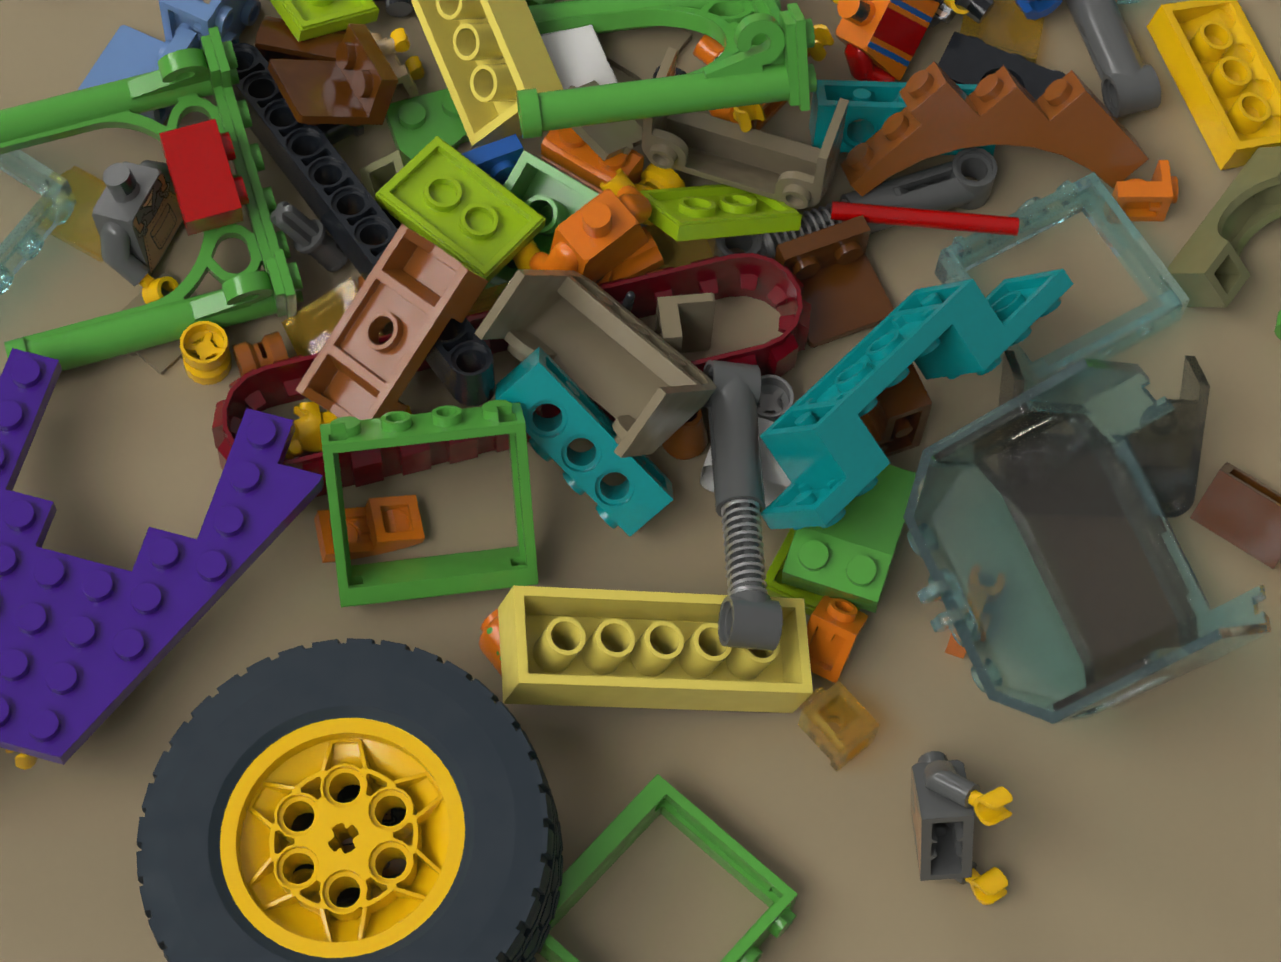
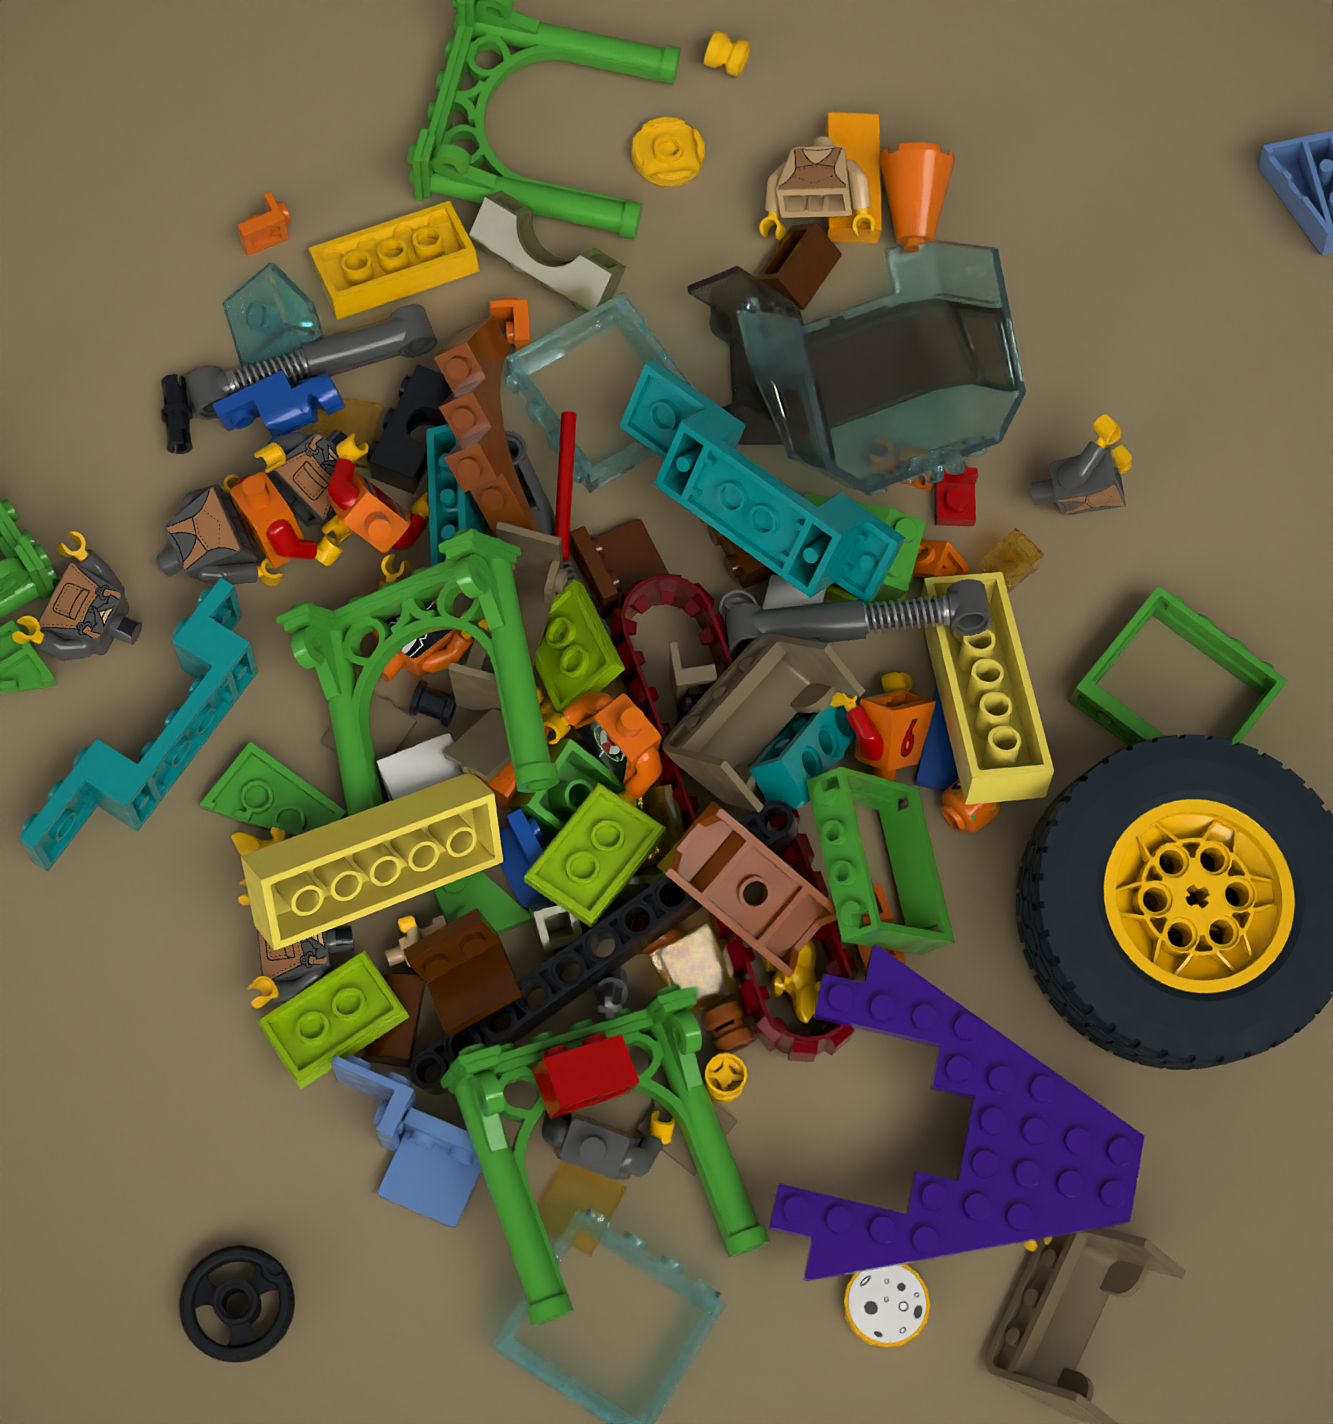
camera: 95 degrees left, 5 degrees up
(608, 542) = (888, 725): none -> orange torso
(932, 674) = (956, 499): none -> red bracket

